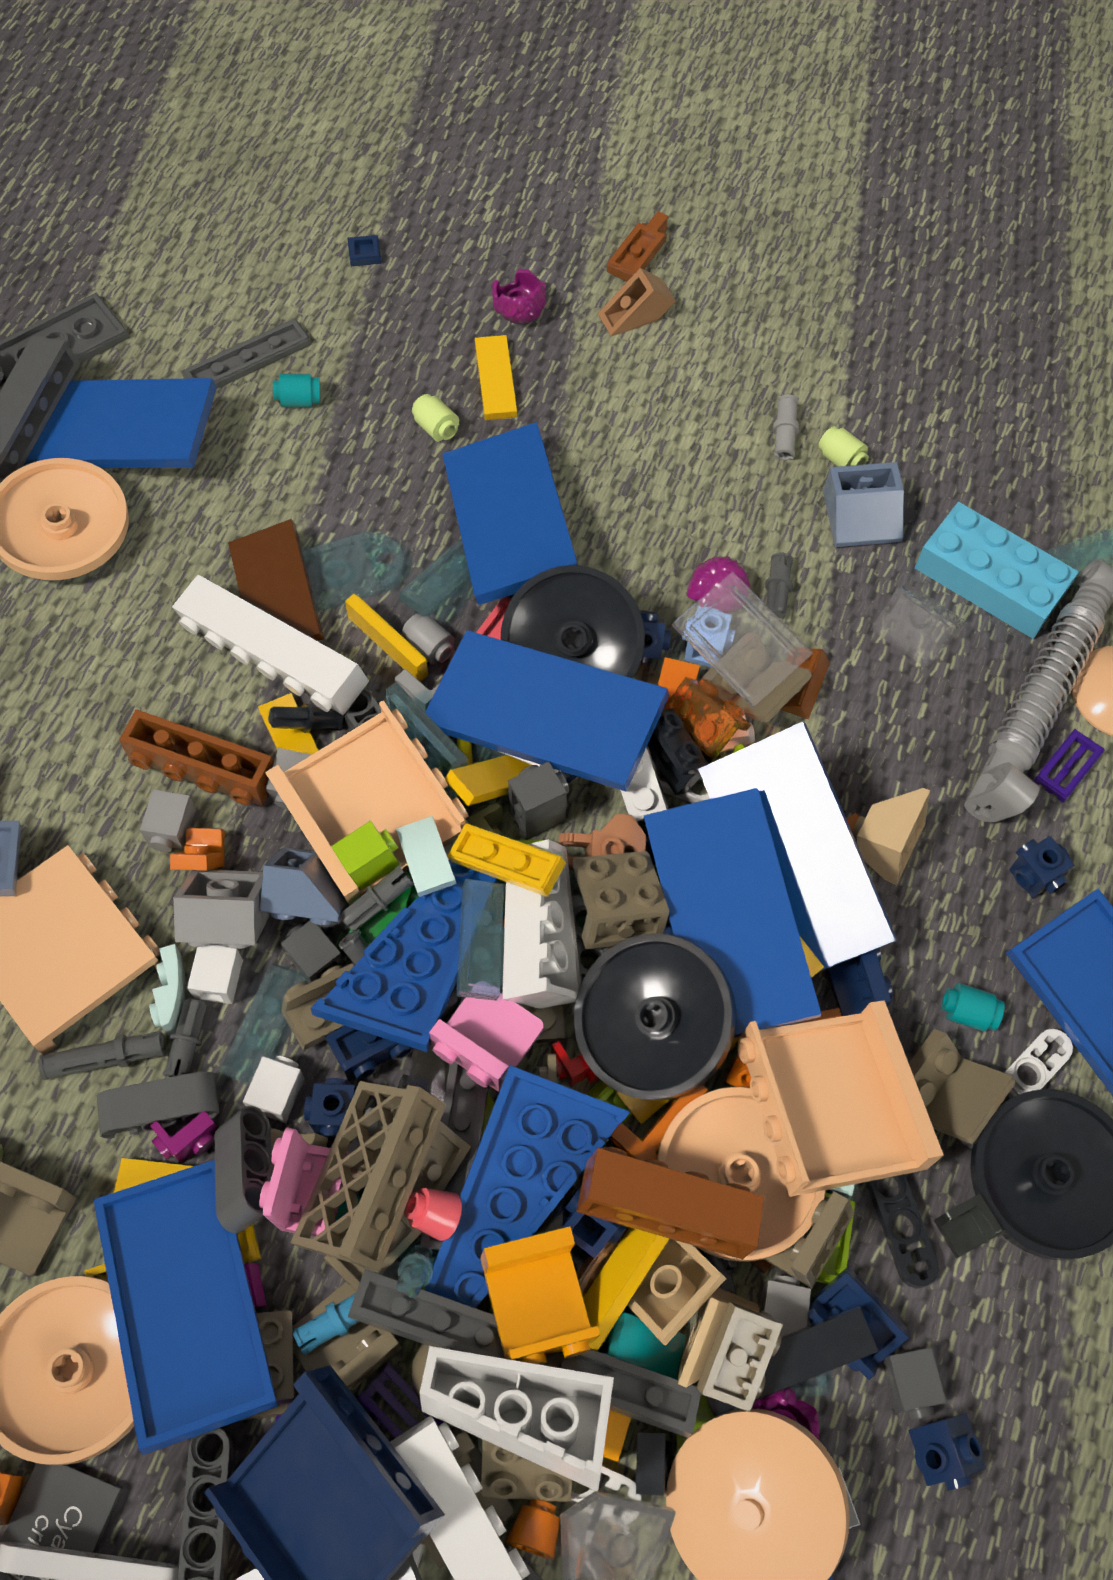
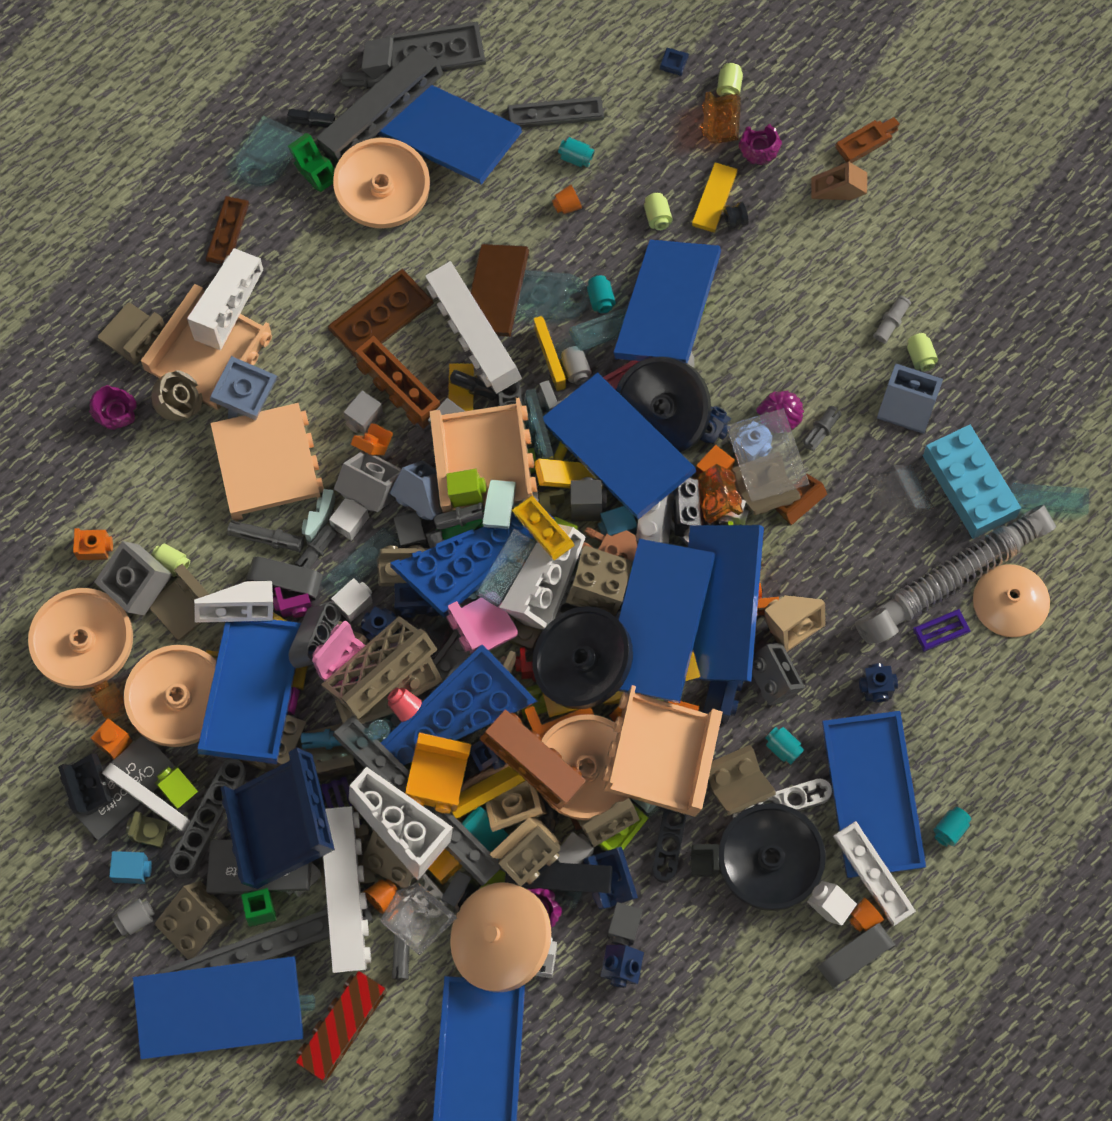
camera: 30 degrees right, 5 degrees up
(104, 1176) = (237, 603): none -> white slope
(127, 1522) = (175, 786): none -> lime brick
(132, 678) = (381, 312): none -> reddish brown tile
(314, 448) = (566, 201): none -> orange hat
(415, 540) = (601, 294): none -> teal brick
(444, 245) = (729, 80): none -> yellowish green brick
(457, 287) = (721, 118): none -> clear orange bracket
(534, 385) = (735, 215): none -> black wheel
(591, 810) = (617, 521): none -> dark azure brick
(914, 916) = (775, 674): none -> dark grey brick

